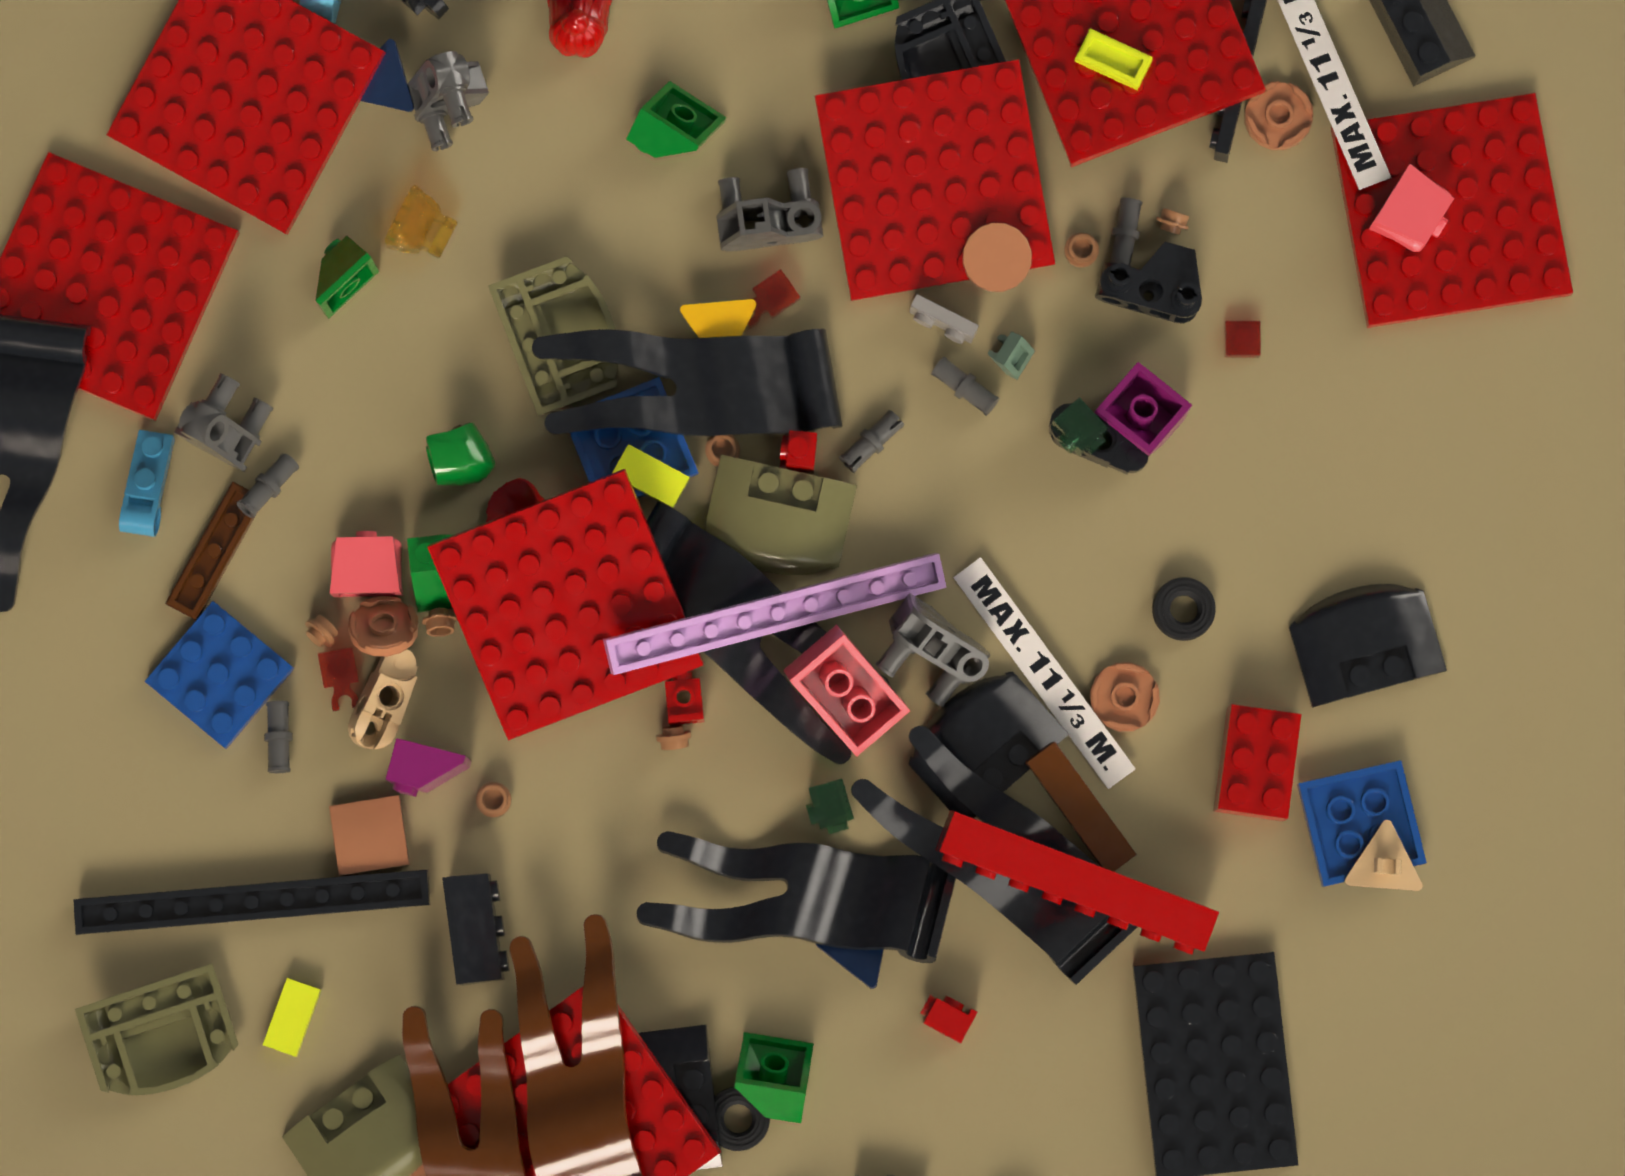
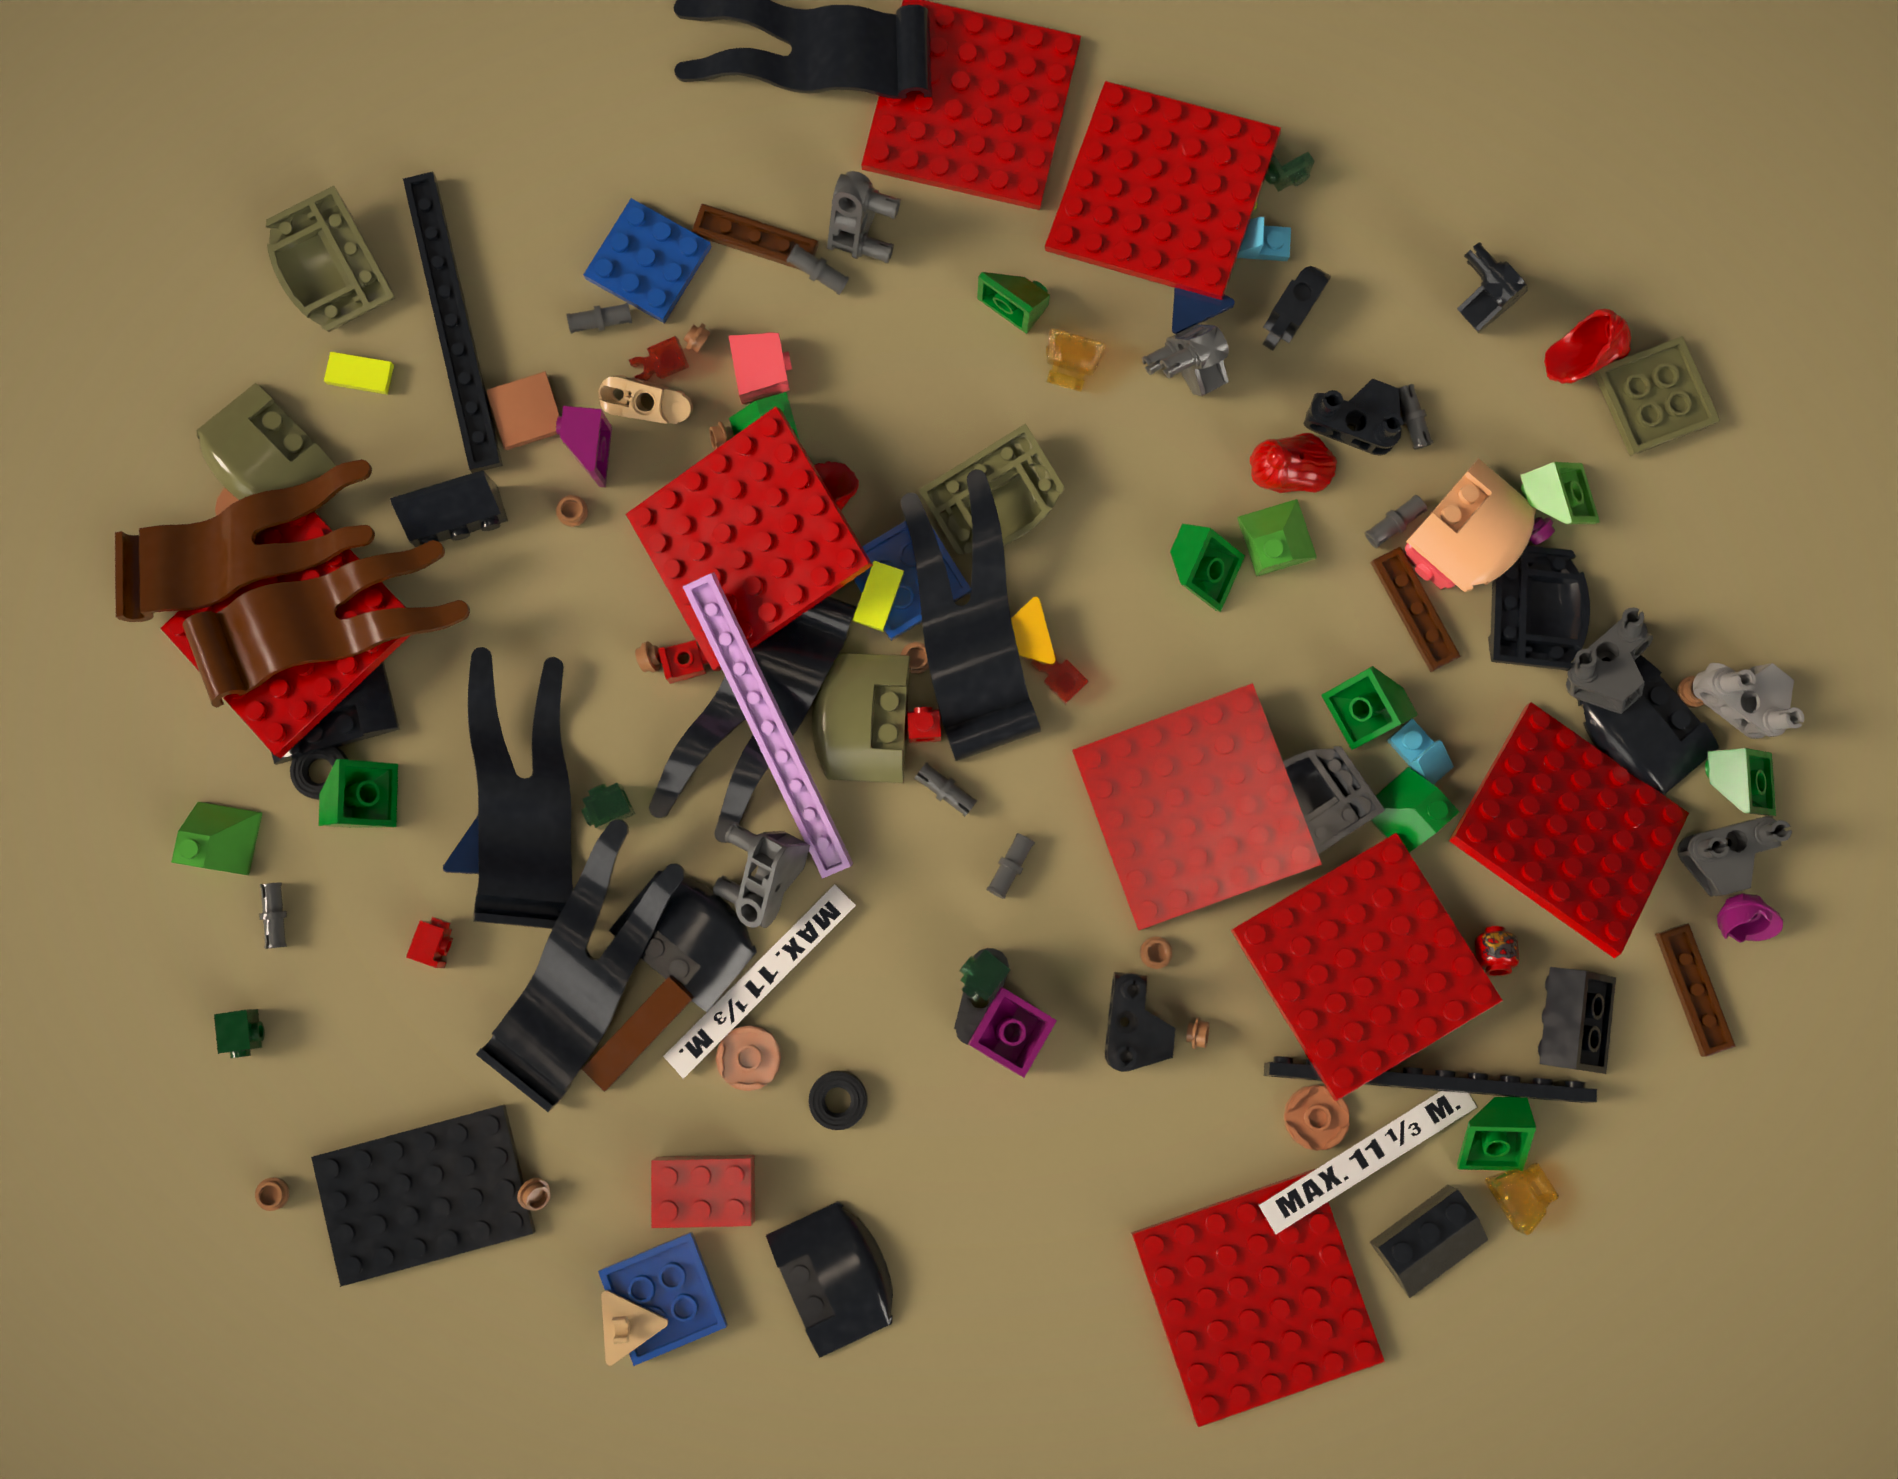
camera: 80 degrees right, 0 degrees up
(146, 484) = (800, 167): dark azure plate -> none
(383, 626) = (708, 388): nougat tile -> none
(459, 456) = (869, 426): green piece -> none
(655, 43) = (1276, 537): none -> bright green slope
(778, 217) = (1131, 669): dark grey piece -> none
(846, 690) = (708, 801): coral brick -> none
(955, 326) = (1062, 848): light grey plate -> none
(997, 257) = (1132, 874): nougat tile -> none
(1013, 354) = (1046, 904): sand green tile -> none
(1077, 881) = (562, 1040): red brick -> none
(1113, 59) = (1338, 952): neon yellow tile -> none
(1126, 231) = (1178, 991): dark grey pin -> none
(1233, 944) = (534, 1194): none -> medium nougat plate
(1242, 339) = (1099, 1116): clear red plate -> none
(1413, 211) = (1247, 1261): coral torso -> none

